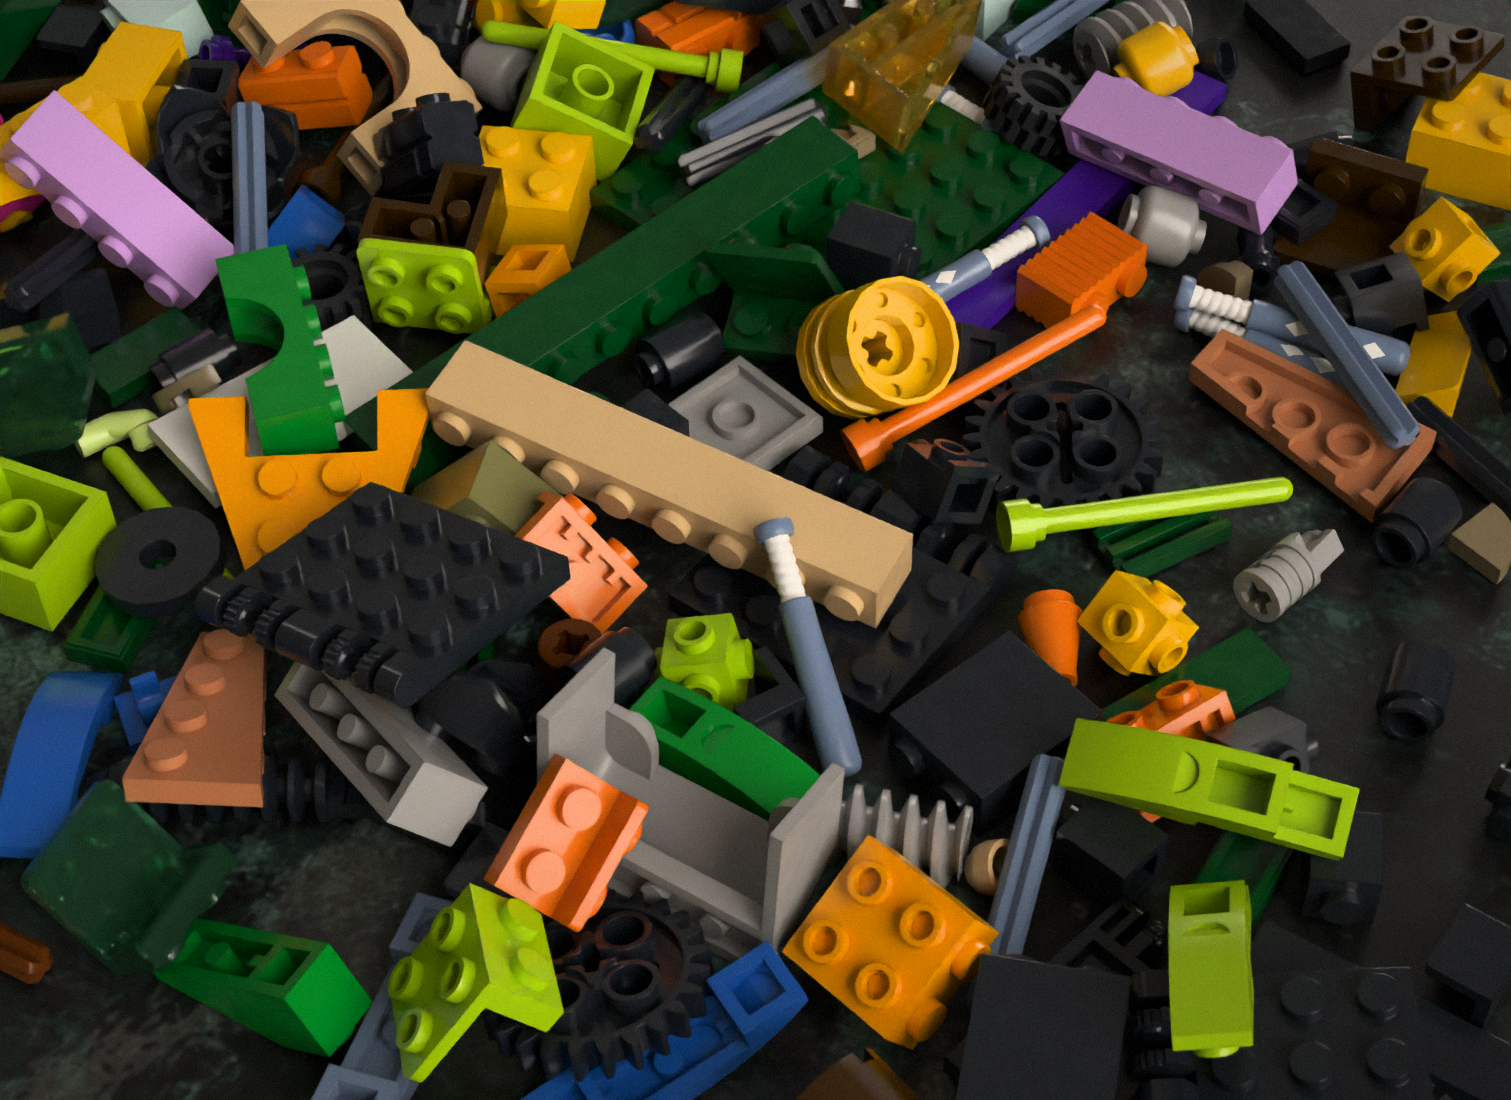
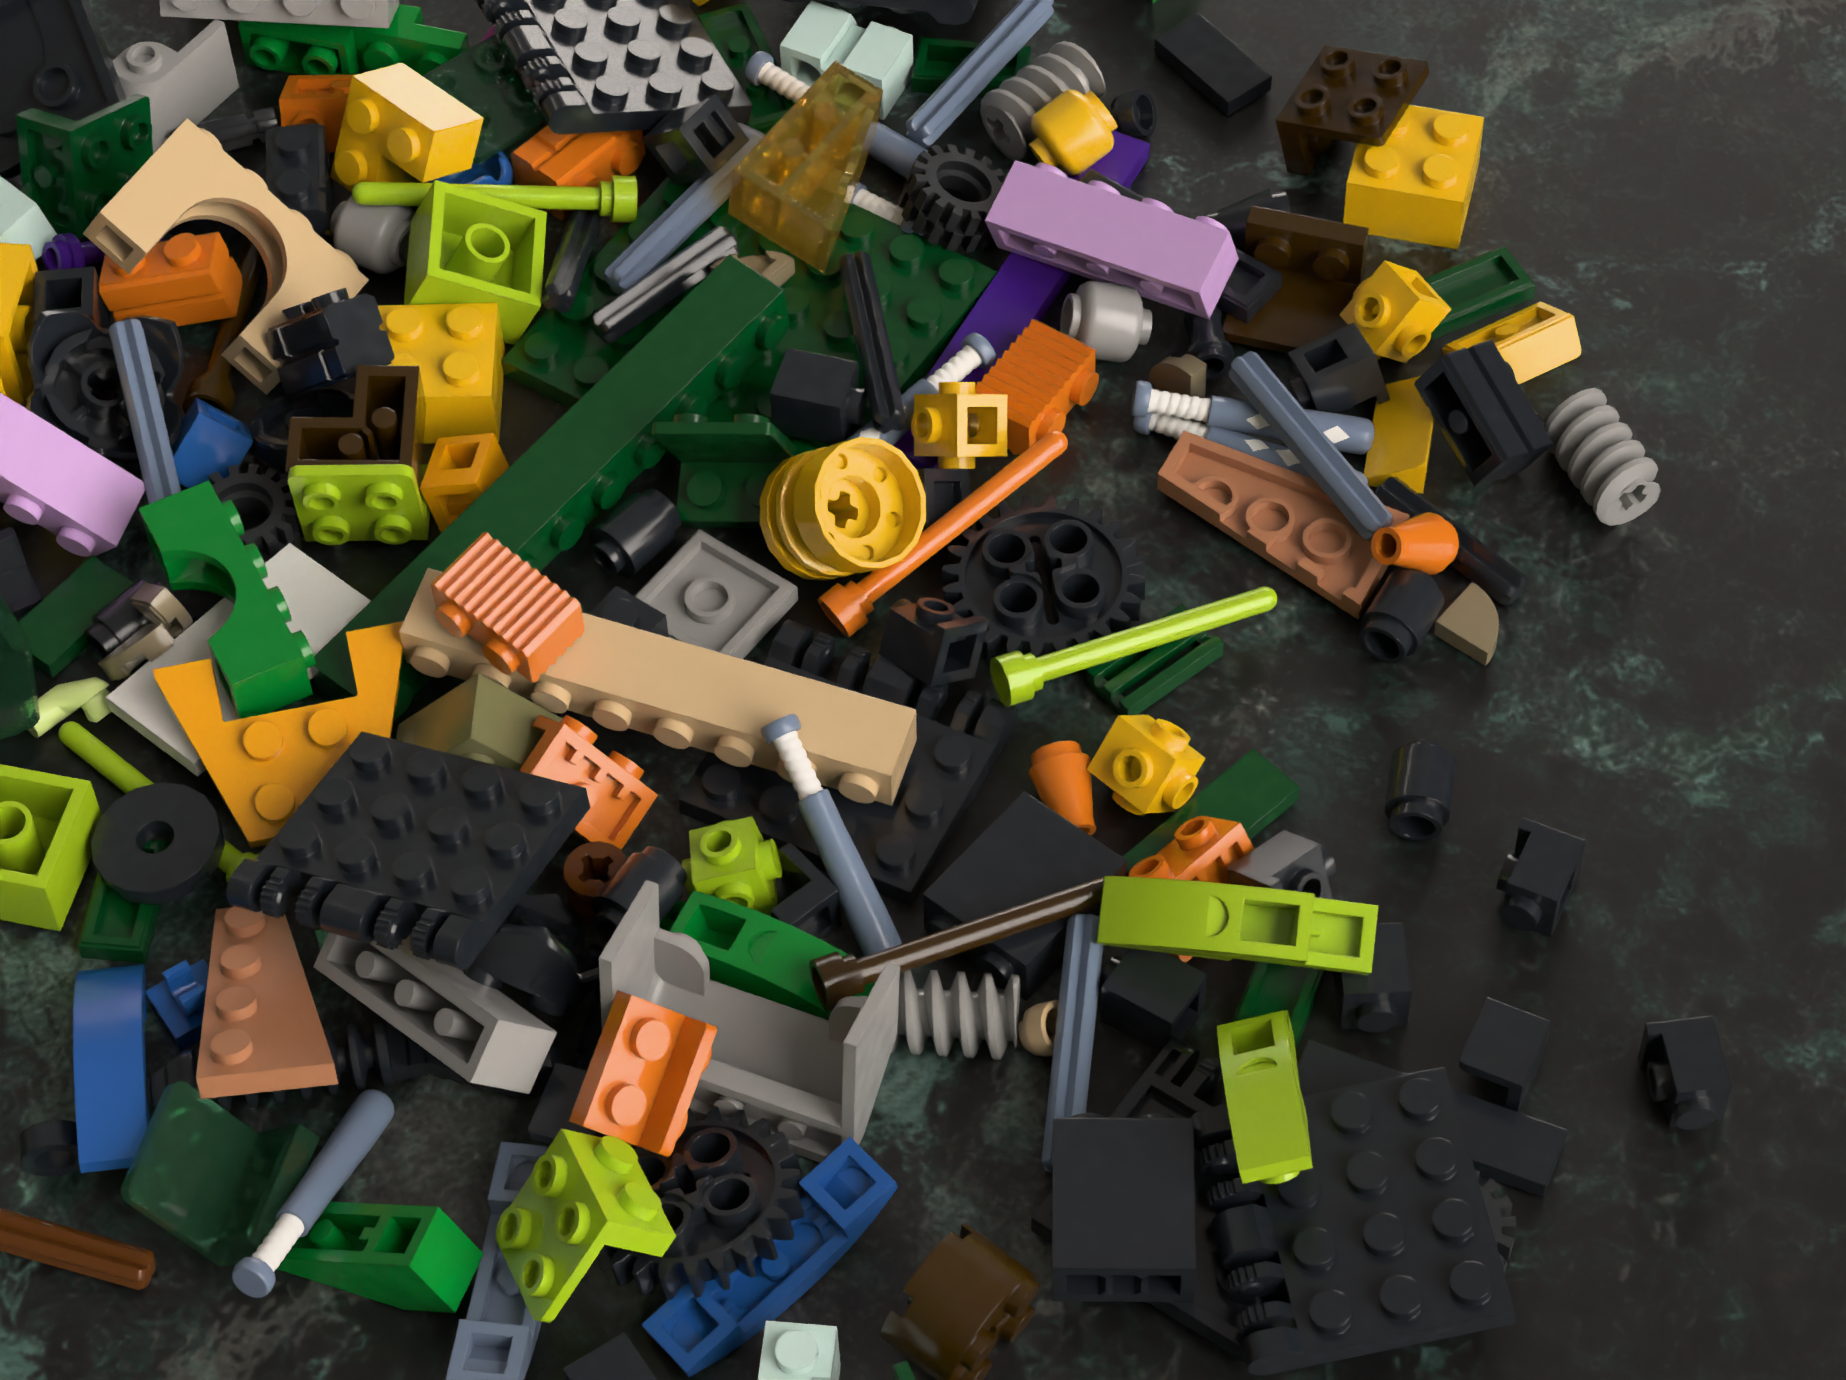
camera: 10 degrees left, 5 degrees up
(218, 351) = (162, 607): none -> dark tan tile
(229, 903) = (324, 1178): none -> sand blue piece
(529, 382) = (506, 608): none -> orange brick
(792, 778) = (847, 976): none -> dark brown piece
(891, 944) = (965, 1120): light orange brick -> none
(934, 212) = (872, 342): none -> black axle
(1004, 291) = (959, 425): none -> yellow brick
(1286, 573) = (1282, 686): light grey hinge -> none
(1442, 456) = (1417, 543): none -> orange cone

